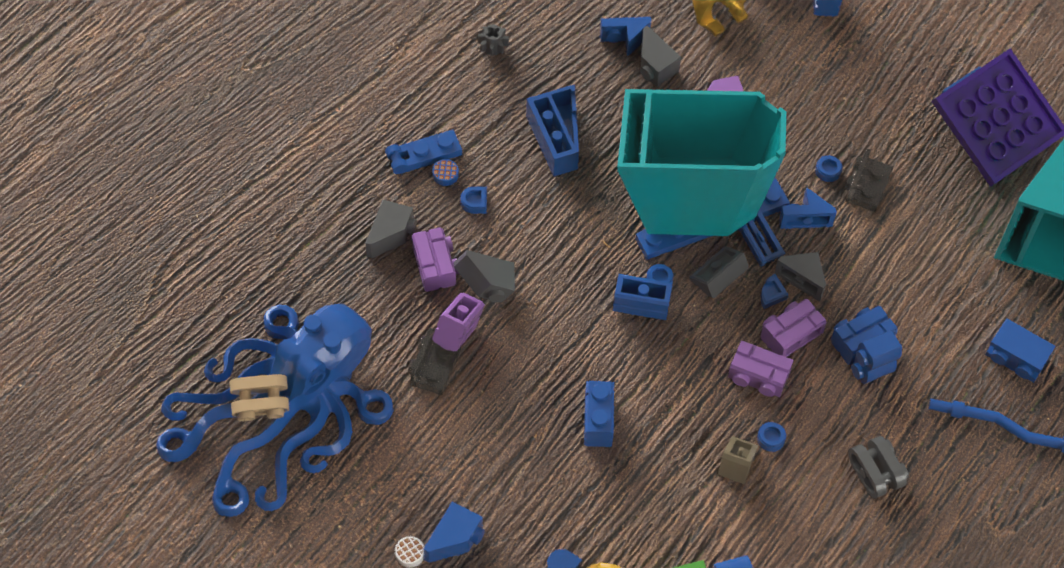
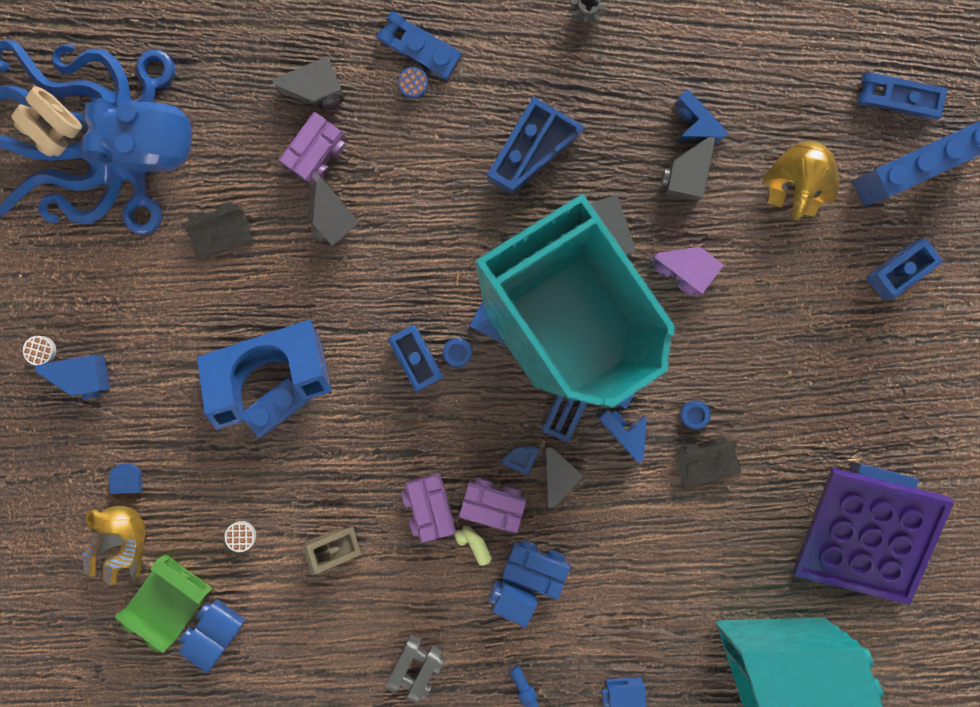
camera: 50 degrees right, 30 degrees up
(458, 322) = (258, 224): medium lavender brick -> none
(474, 200) = (406, 131): blue tile -> none
(567, 366) = (226, 369): none -> blue arch
(676, 516) = (240, 536): none -> tile
(720, 271) = (506, 398): dark grey slope -> none
(771, 436) = (377, 559): blue tile -> none
(811, 359) = (476, 543): none -> yellowish green arm

